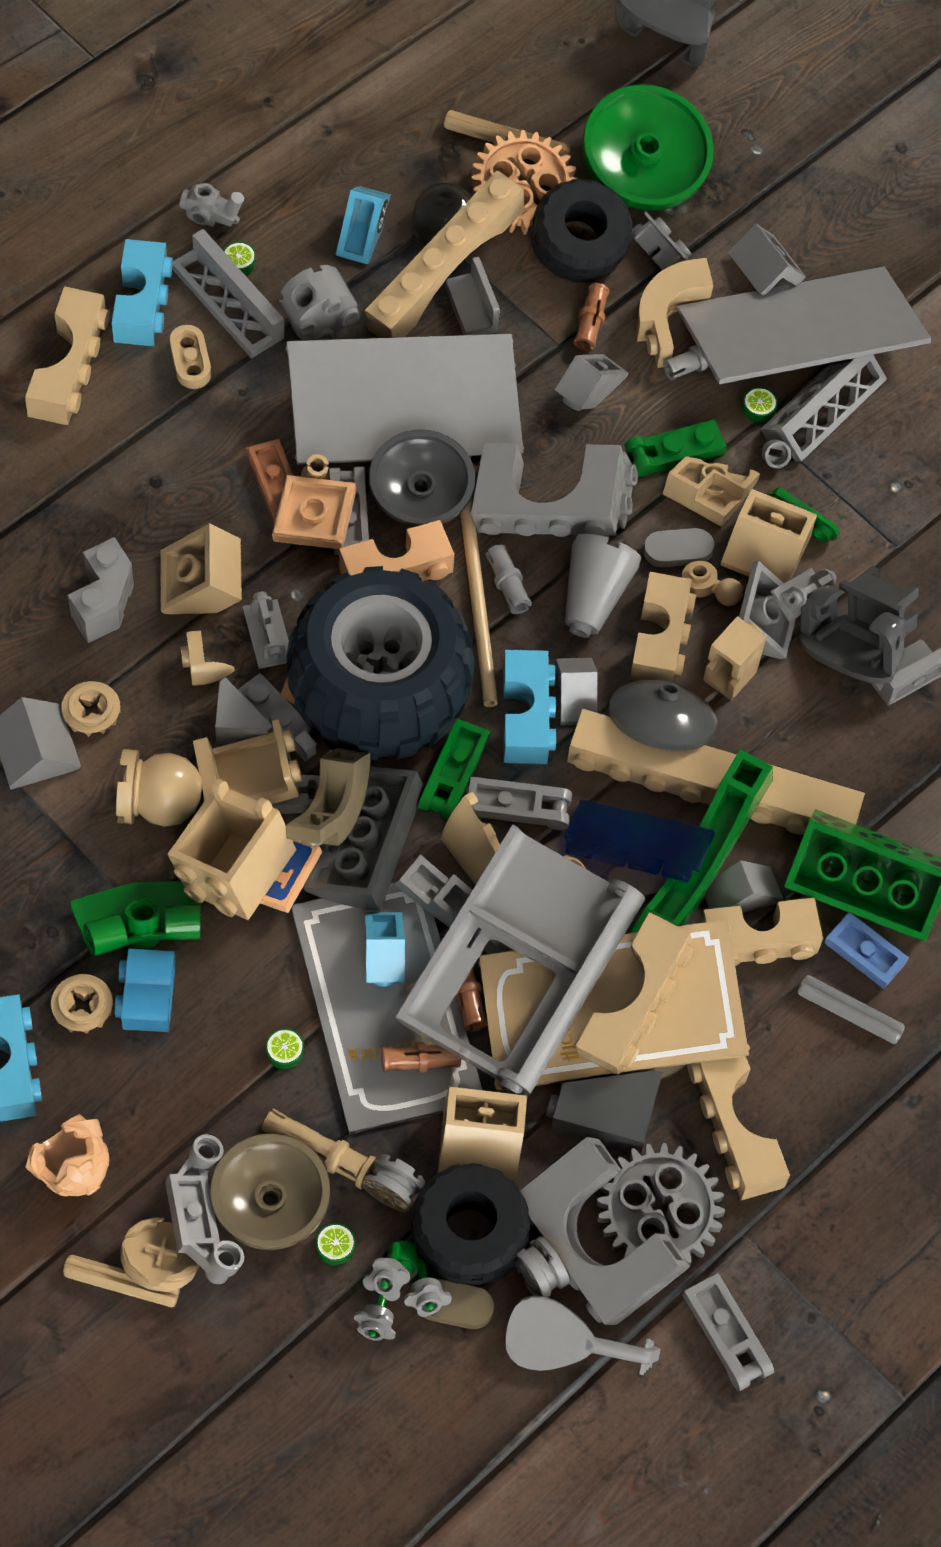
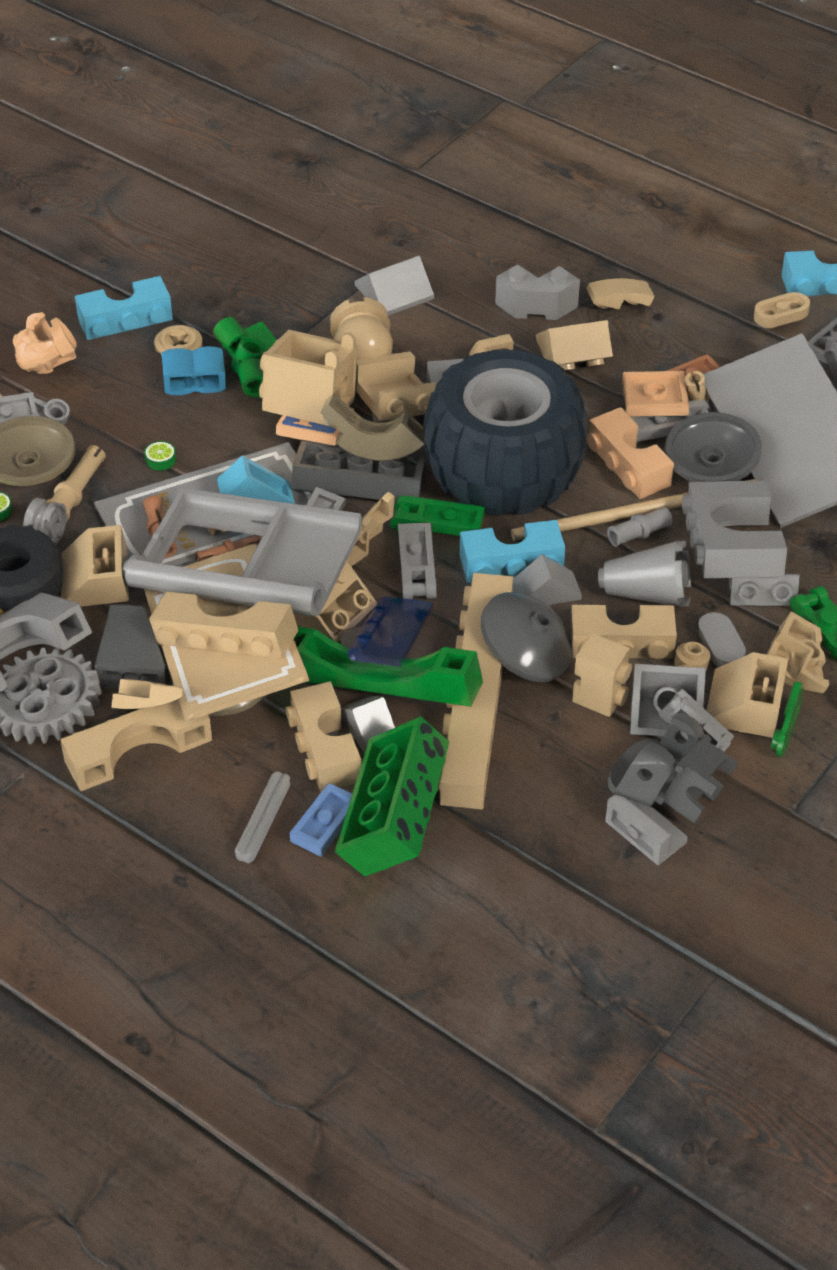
camera: 85 degrees right, 15 degrees down
(56, 389) = (717, 244): tan arch -> none
(88, 694) = (425, 303): tan gear -> none
(119, 506) = (614, 291): none -> tan slope
(697, 1097) = (144, 694): none -> tan slope

